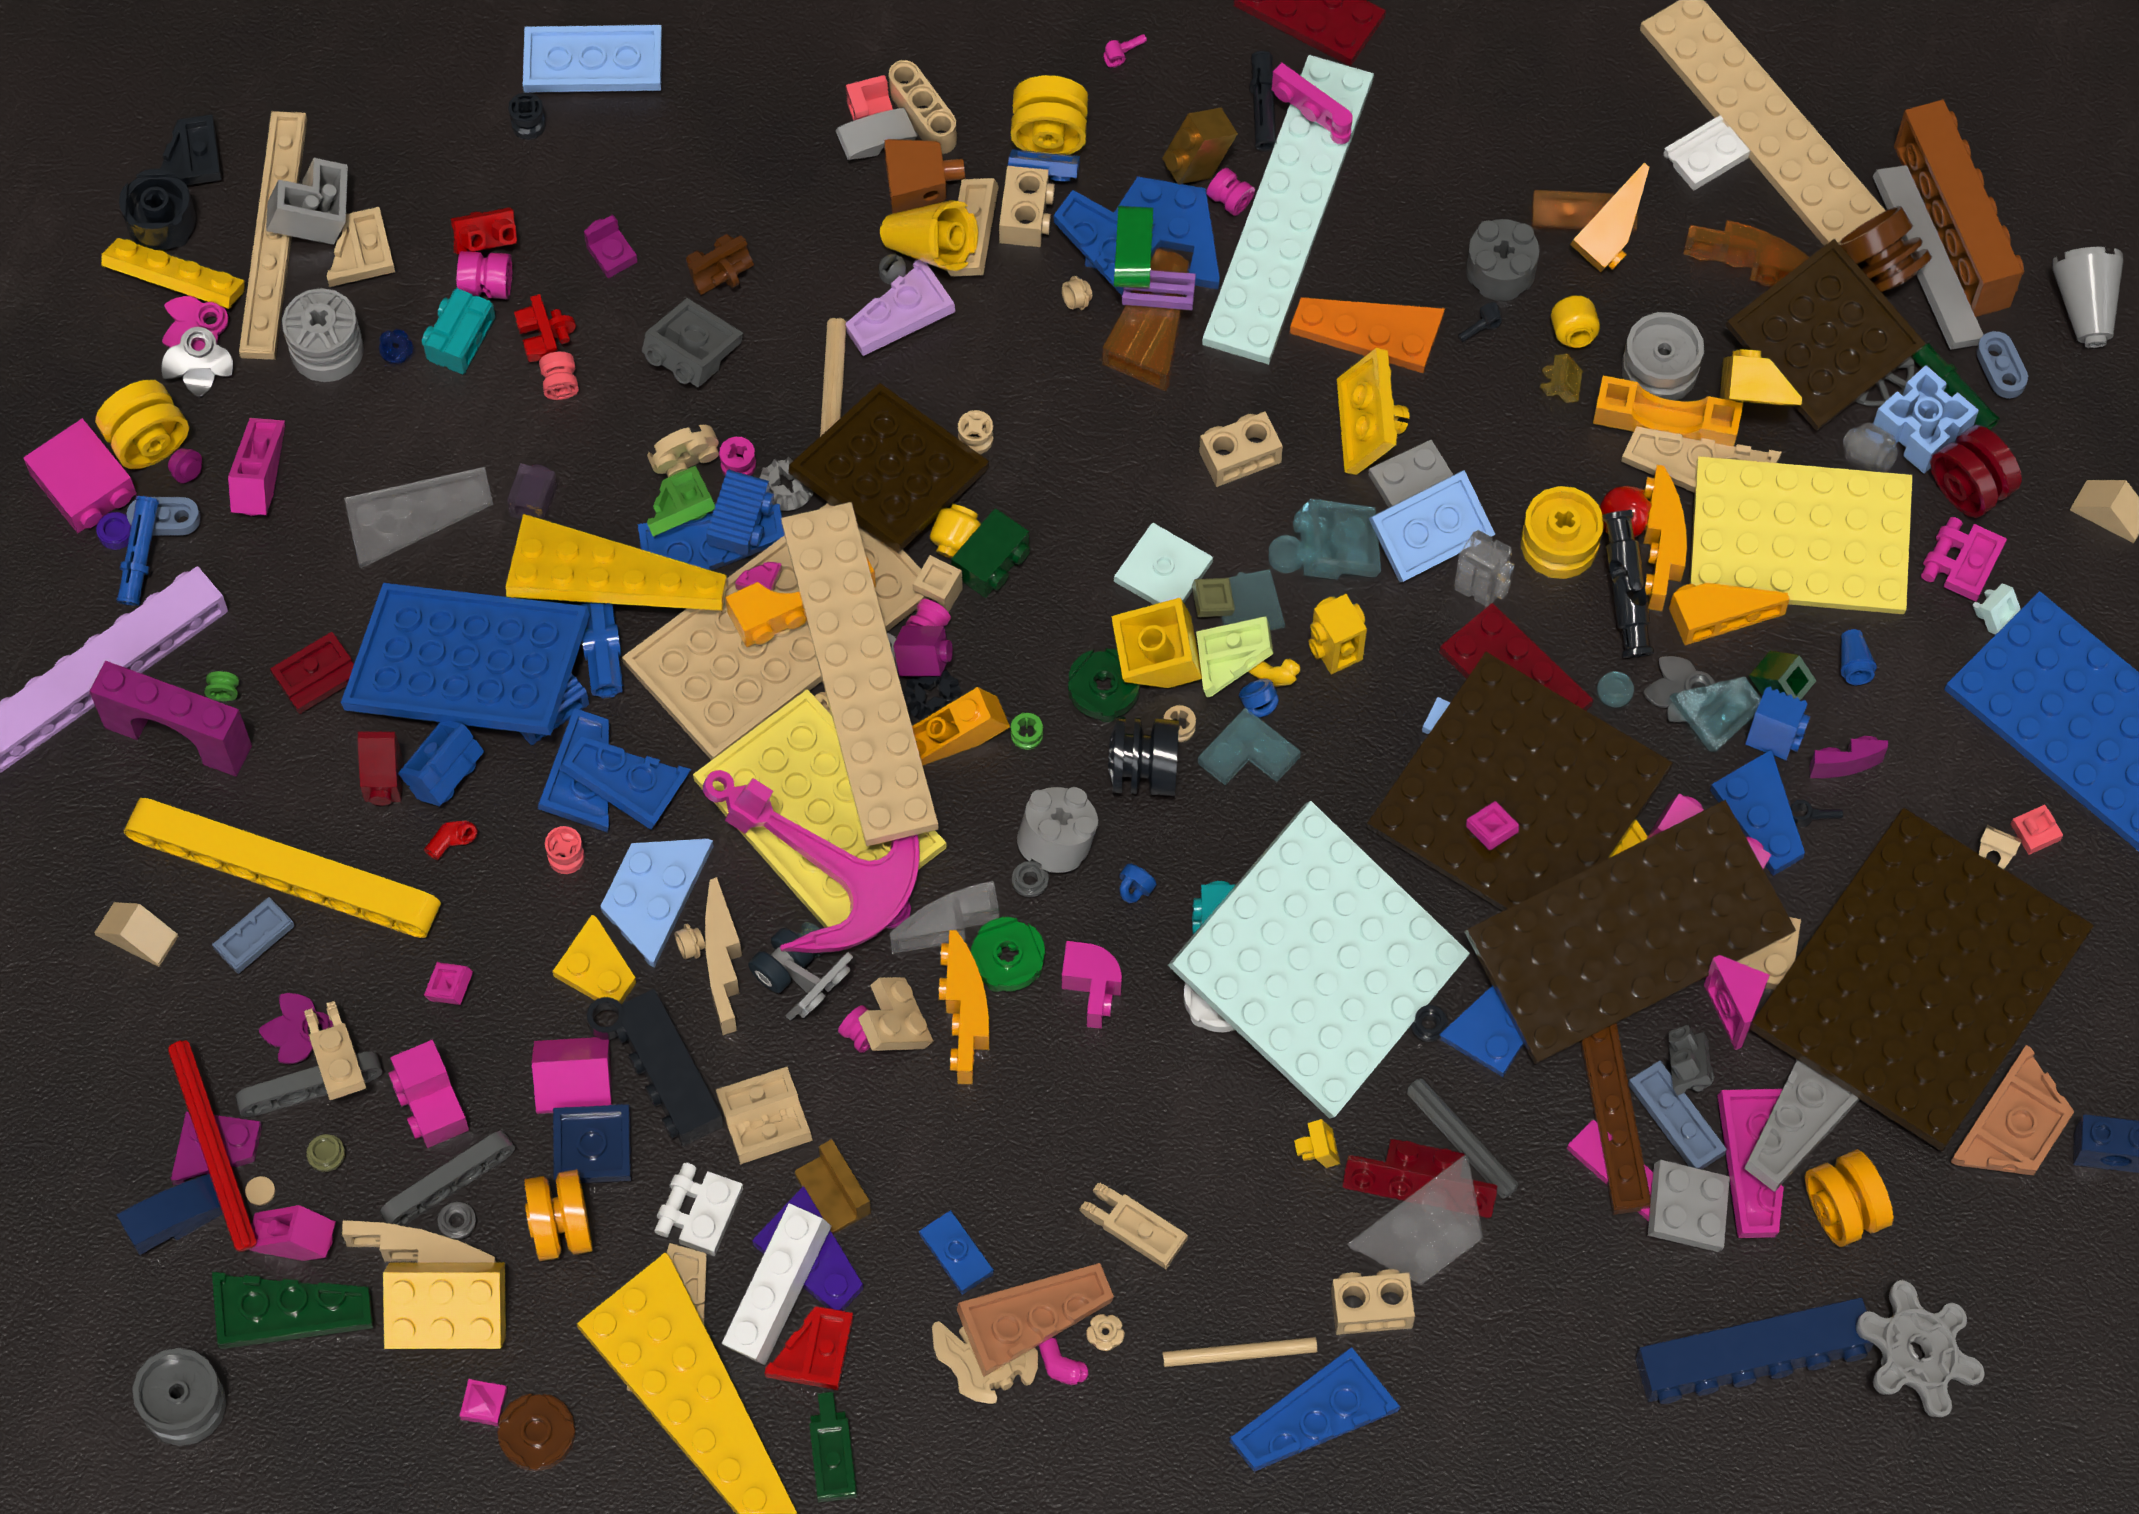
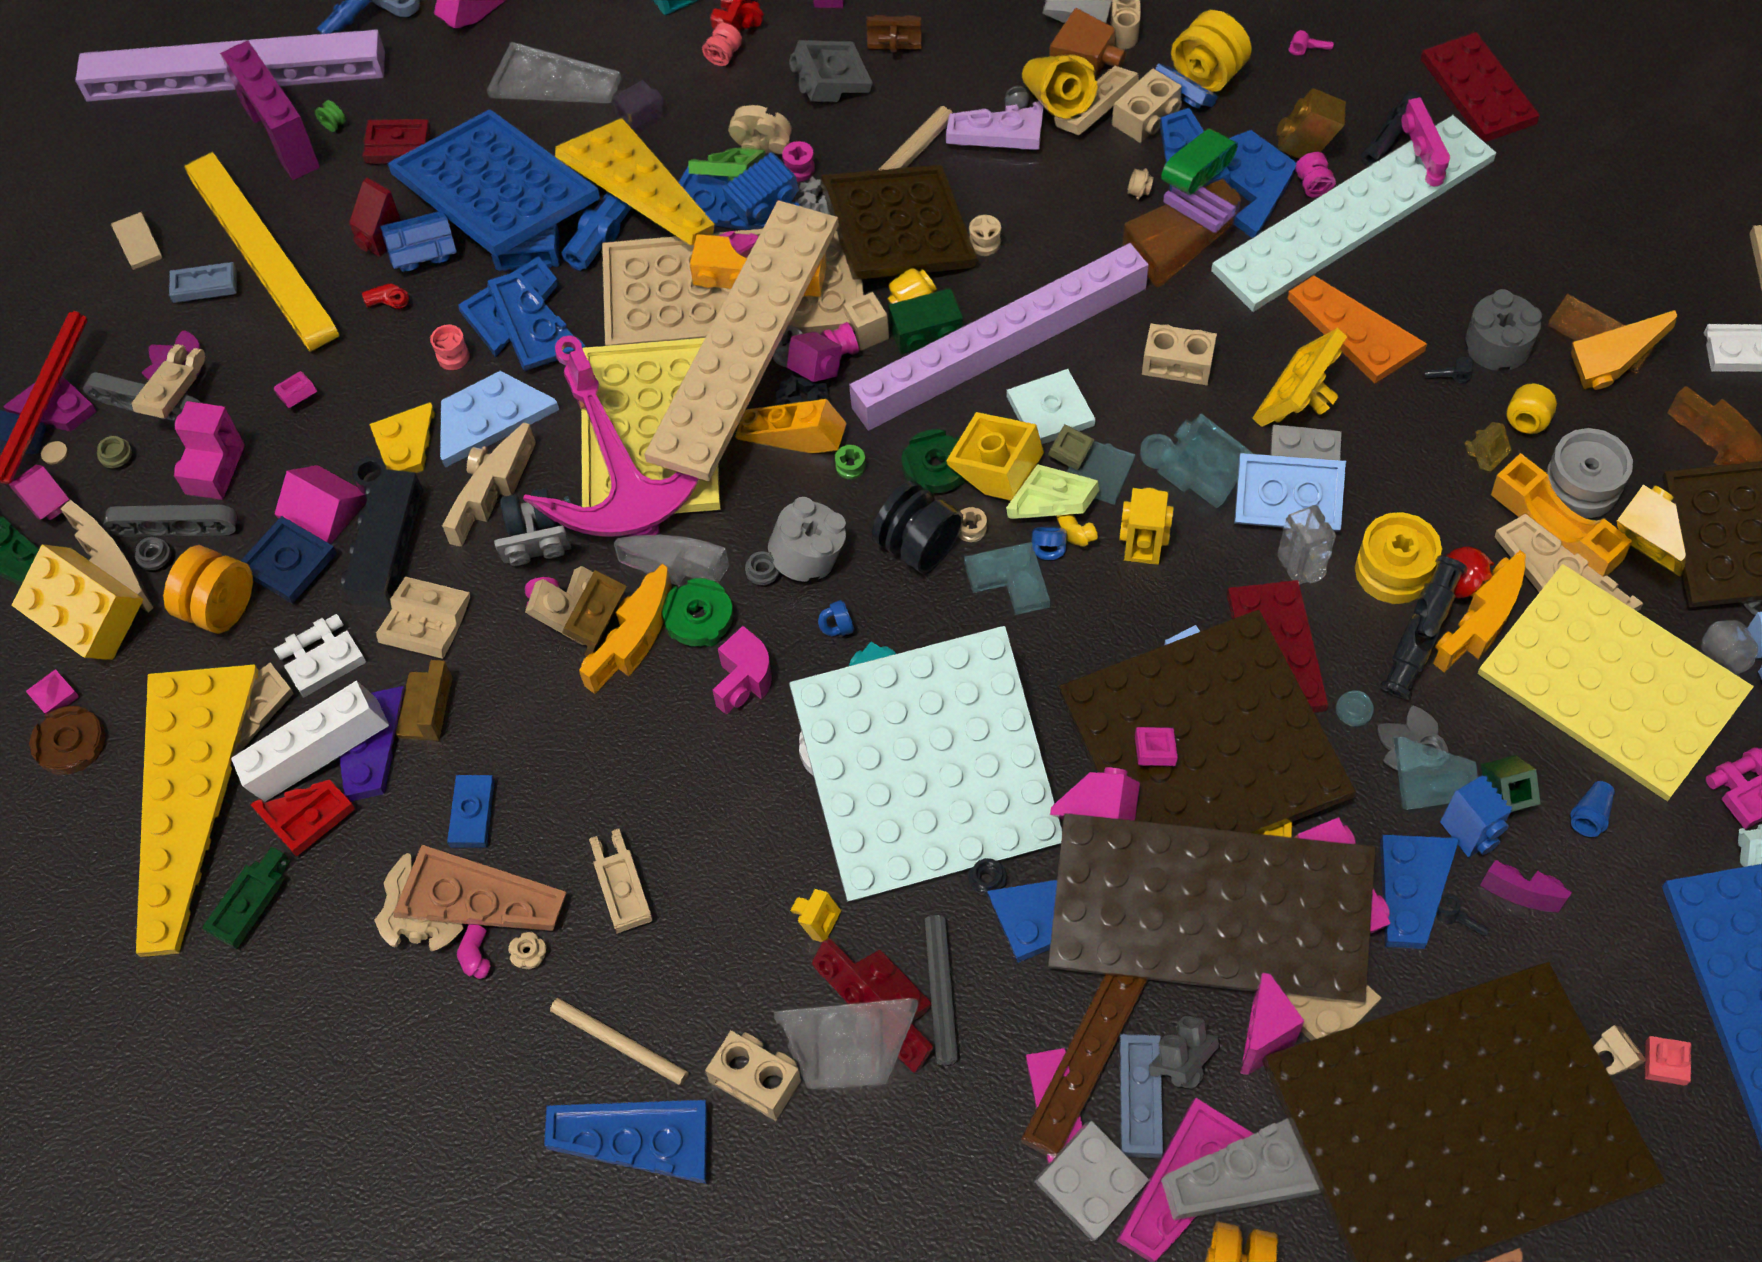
camera: 40 degrees right, 5 degrees down
(927, 1010) = (594, 610): none -> pearl gold panel
(1069, 528) = (998, 336): none -> lavender brick
(1479, 898) = (1101, 795): none -> dark pink slope
(1719, 609) = (1497, 698): light orange slope -> none

